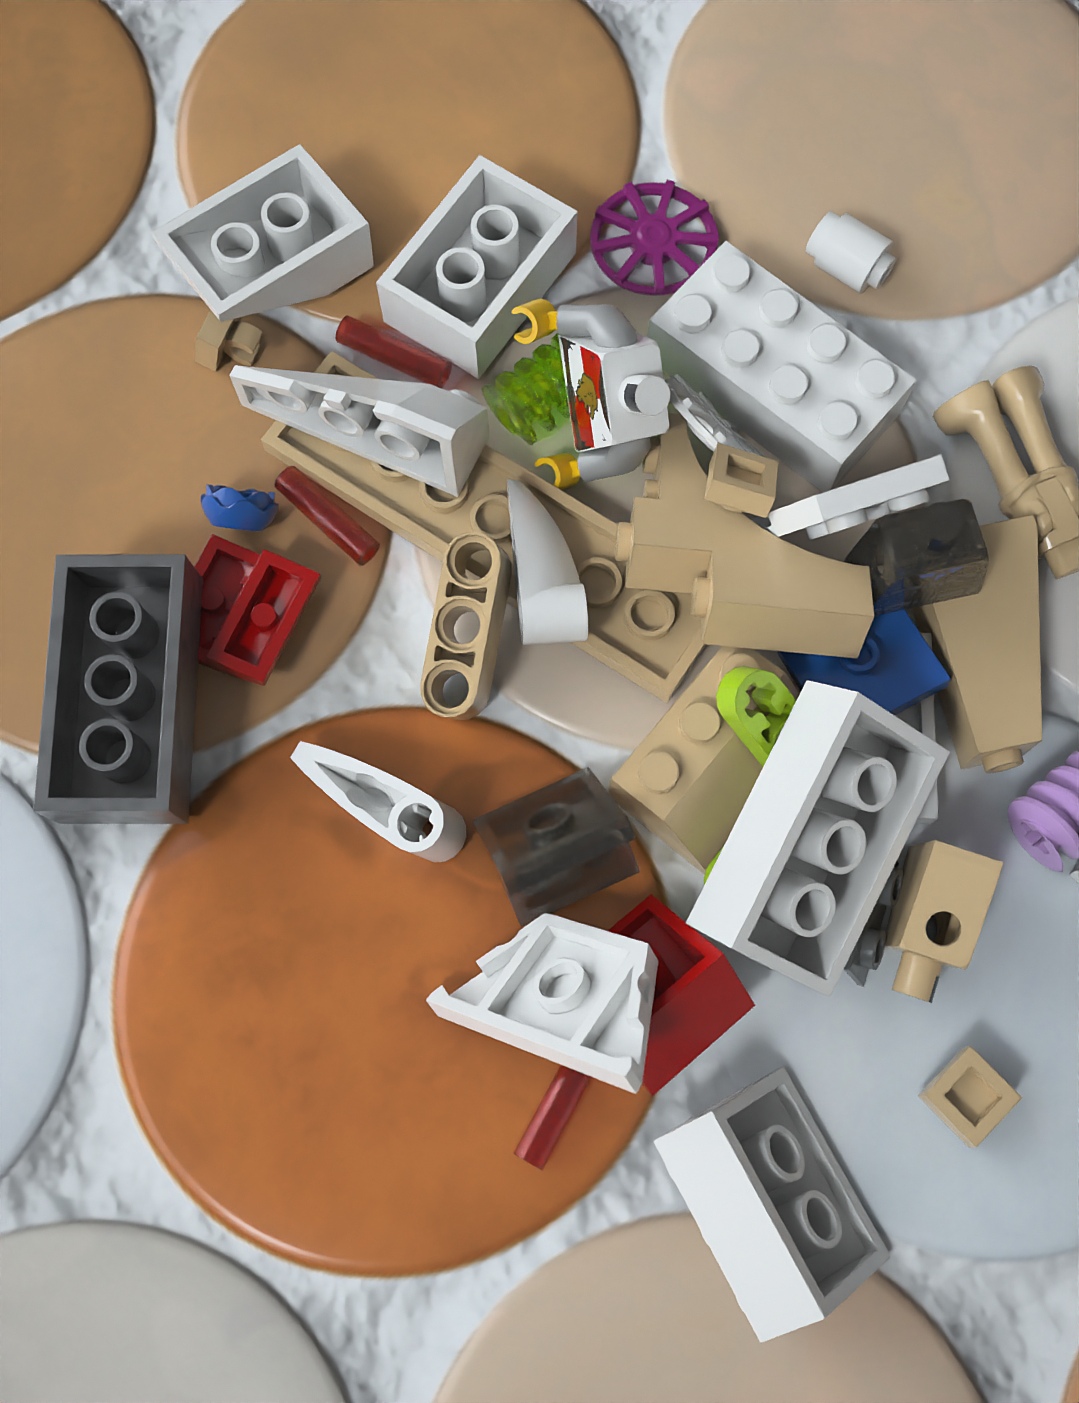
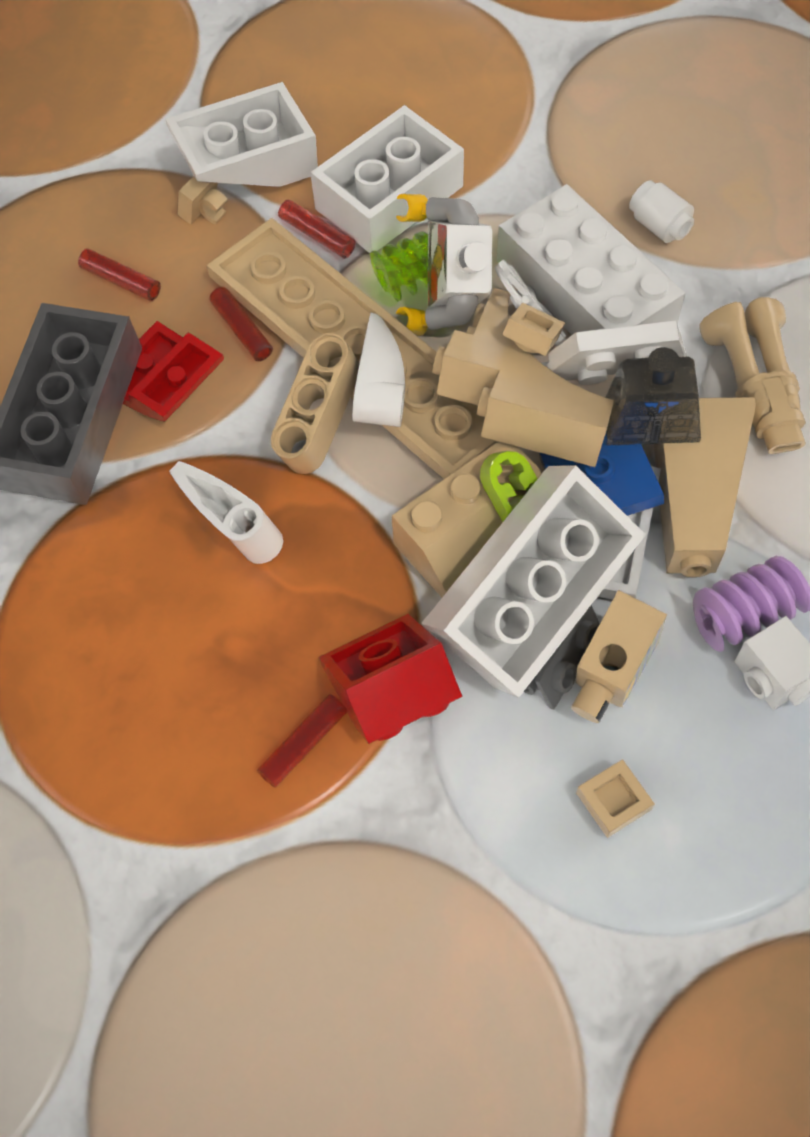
camera: 15 degrees right, 10 degrees down
(139, 469) = (119, 274): none -> clear red piece
(239, 509) = (179, 307): blue plate -> none
(390, 422) = (294, 261): white wedge -> none
(558, 845) = (345, 566): clear smoke bracket -> none
(564, 997) = (317, 656): white wing -> none
(652, 236) = (521, 183): magenta wheel -> none
(773, 1205) = (441, 840): white slope -> none

